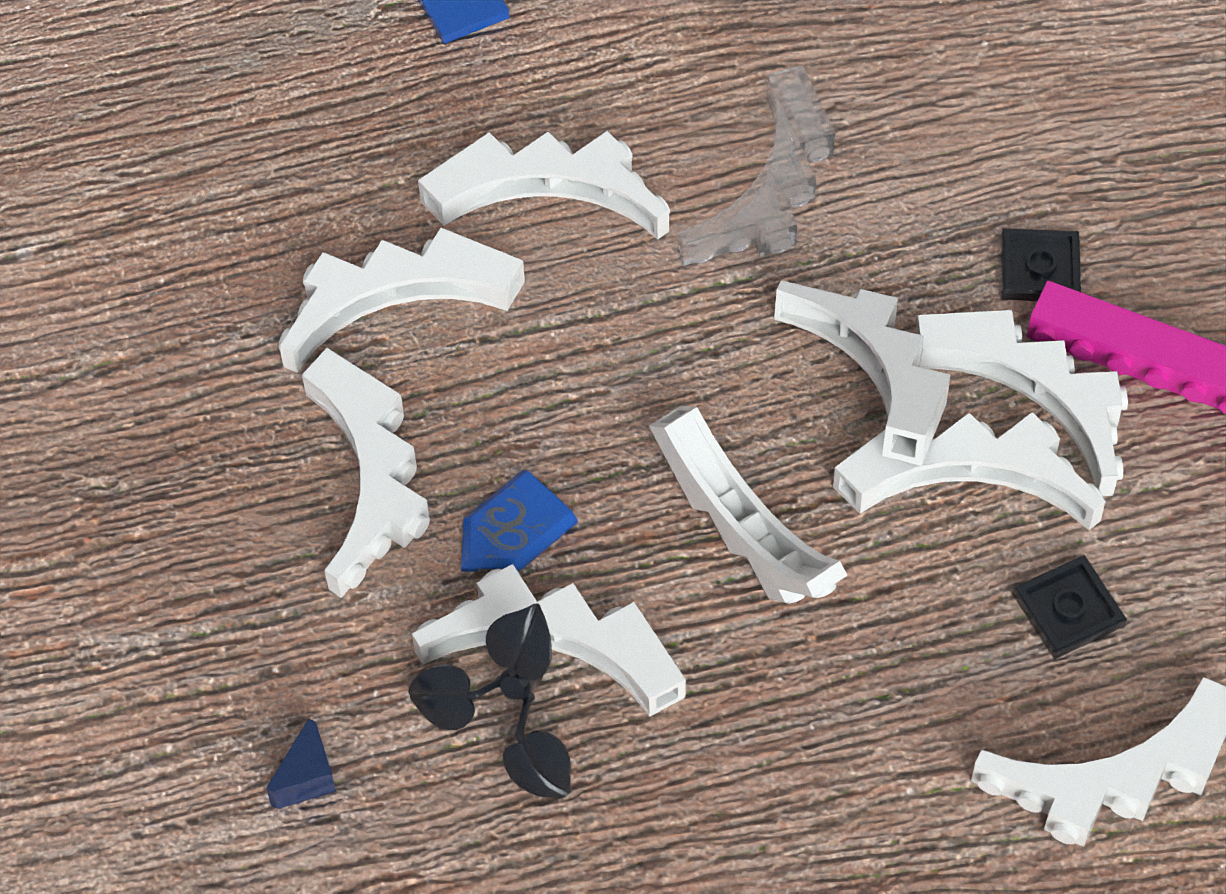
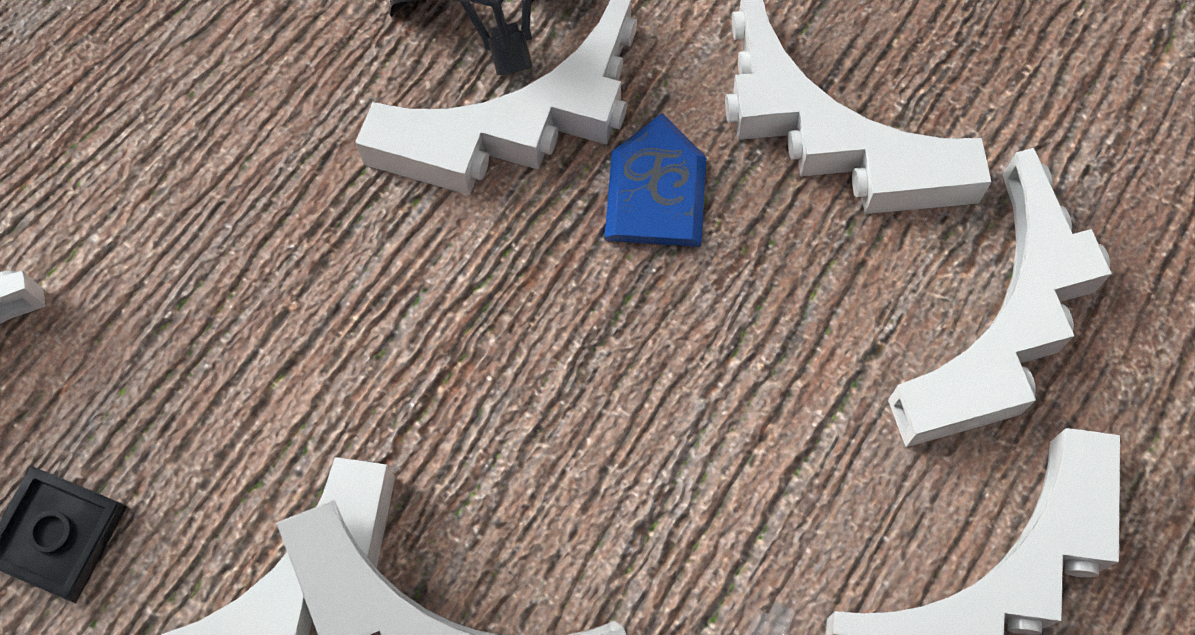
camera: 140 degrees right, 10 degrees up
(712, 484) = (426, 335): white arch -> none

